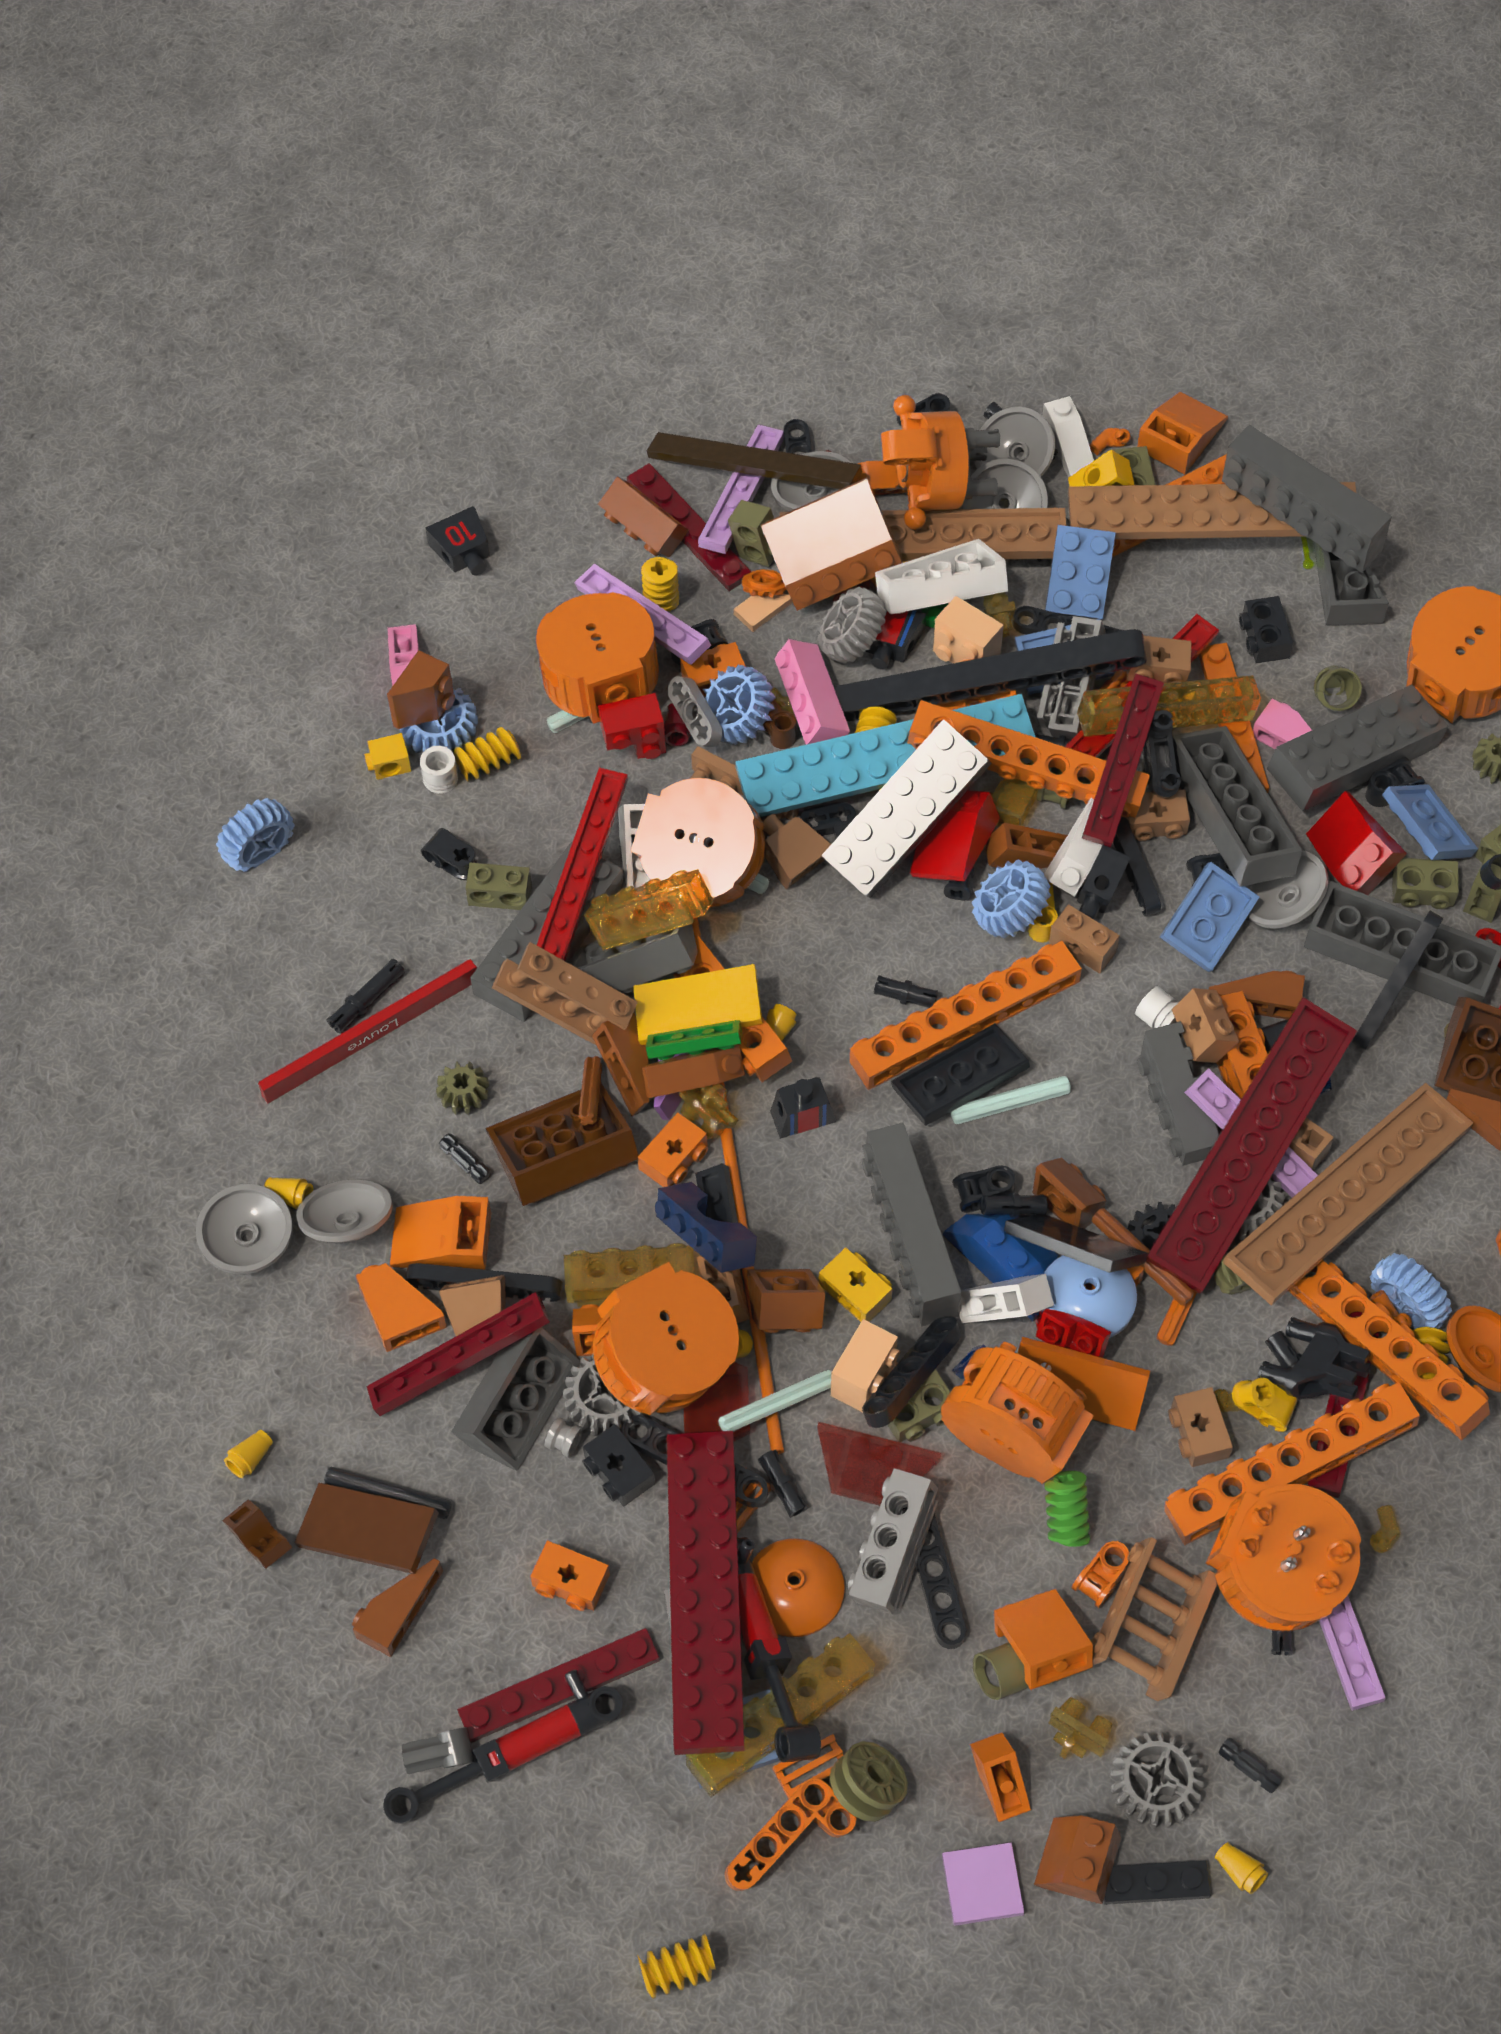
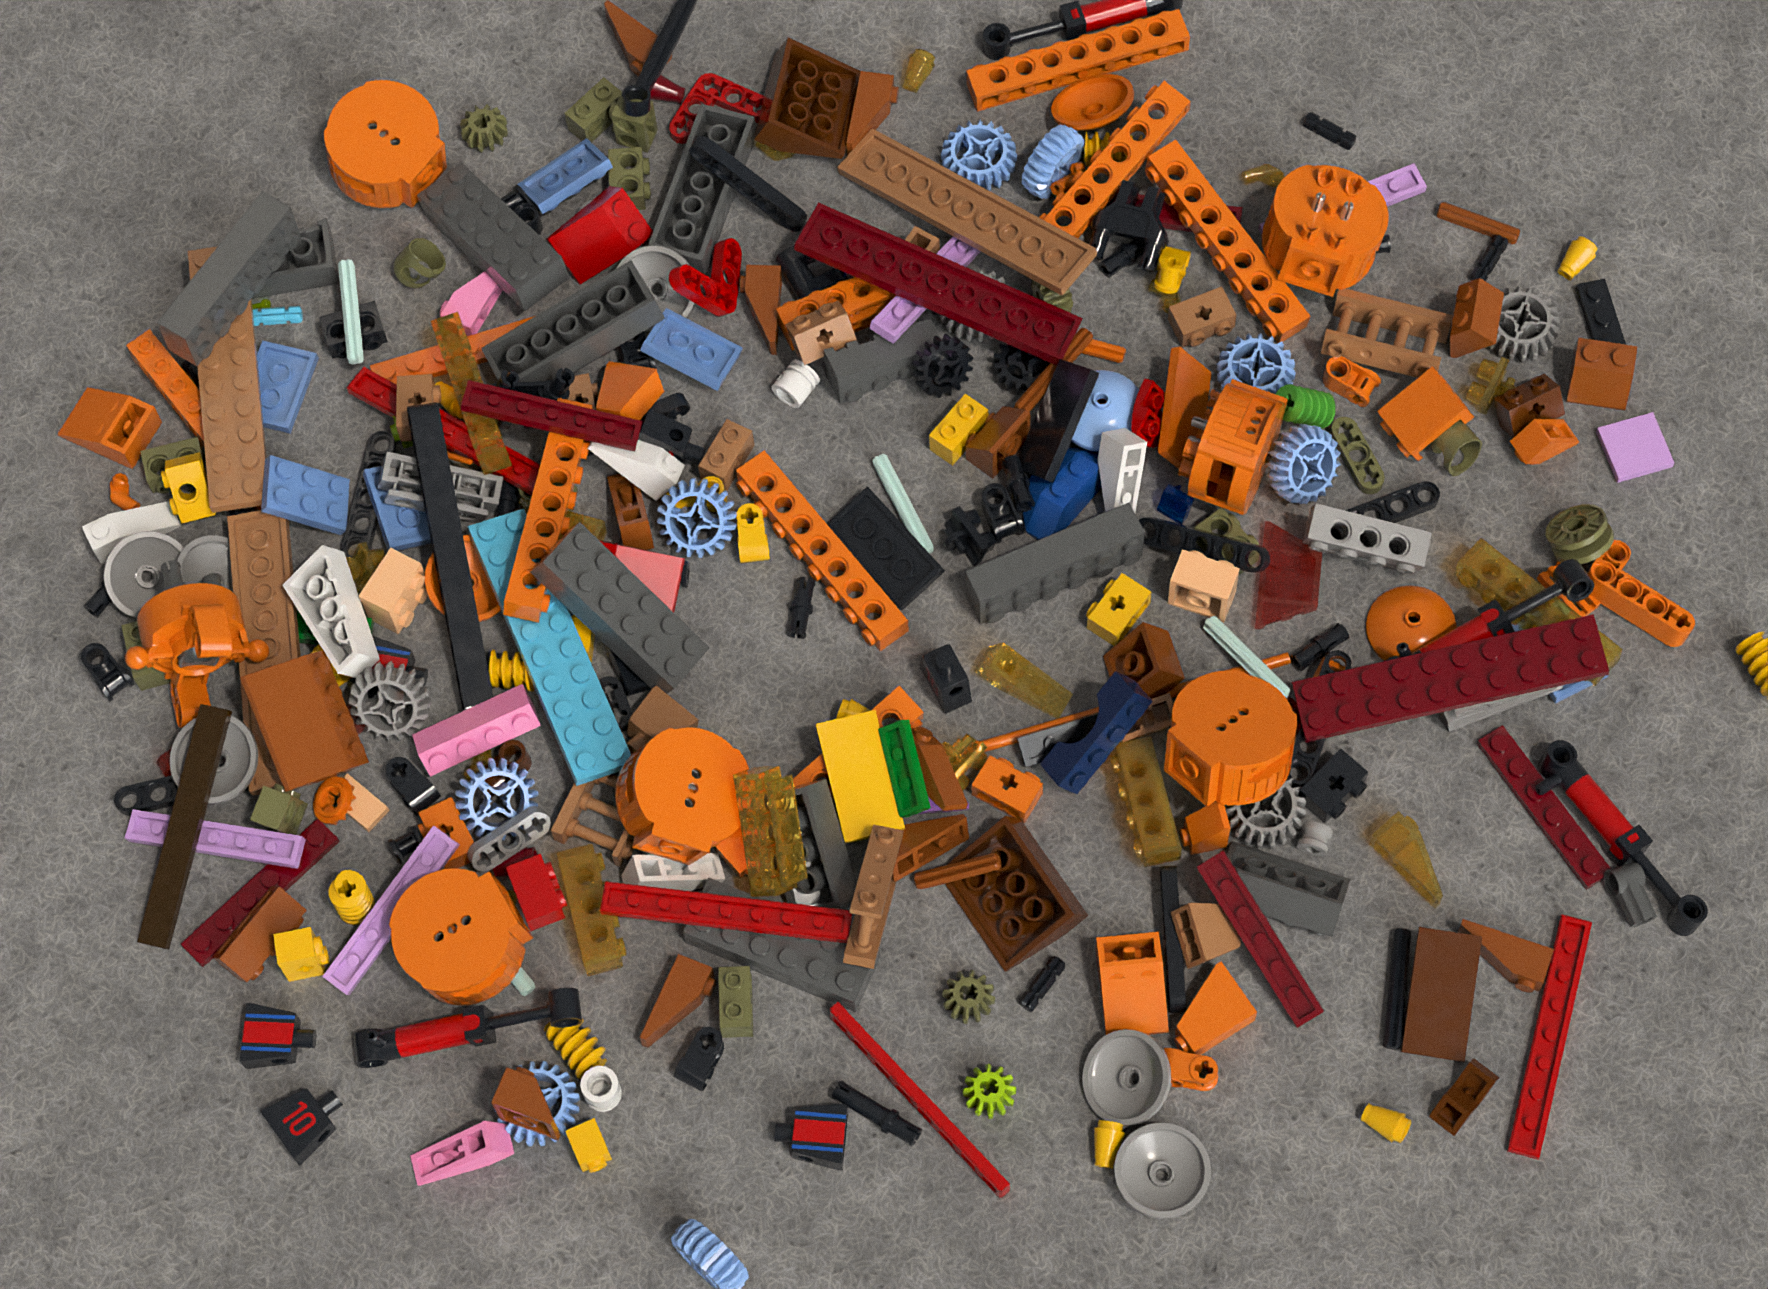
camera: 95 degrees left, 5 degrees up
(306, 1638) = (1549, 1037): none -> red tile
(342, 1271) = (1186, 1069): none -> orange piece
(353, 942) = (817, 1135): none -> torso
(365, 1102) = (993, 1101): none -> lime gear
(514, 660) = (472, 1026): none -> black piece
(514, 840) = (681, 994): none -> dark orange slope
(525, 1527) = (1405, 851): none -> clear yellow slope
(546, 524) = (272, 1037): none -> torso
(560, 1562) = (1450, 793): orange brick -> none
(614, 542) = (300, 954): none -> yellow brick
(646, 765) = (576, 867): none -> clear yellow brick
(765, 644) = (413, 787): none -> black piece
(789, 1183) = (1022, 679): none -> clear yellow slope
(978, 1151) = (965, 537): none -> black hips
(988, 952) = (751, 537): none -> yellow piece
(1005, 1490) = (1303, 464): none -> light blue gear
(1016, 1554) = (1361, 444): none -> olive beam
(1044, 1763) = (1532, 400): none -> reddish brown brick
(1089, 1155) = (957, 426): none -> yellow brick
(1140, 1476) = (1278, 370): none -> light blue gear
(1155, 845) = (628, 390): none -> orange slope
(1160, 1713) = (1475, 317): none -> dark orange slope
(1161, 1147) = (942, 365): none -> black gear
(1212, 566) = (283, 383): none -> medium blue plate
(1278, 618) = (350, 312): none -> light aqua axle
(1283, 952) = (719, 296): none -> red beam
(1292, 569) = (277, 315): none -> medium azure axle
(1302, 1763) = (1477, 222): none -> dark orange axle
(1438, 1247) = (981, 147): none -> light blue gear
(1442, 1615) = (1329, 130): none -> black axle

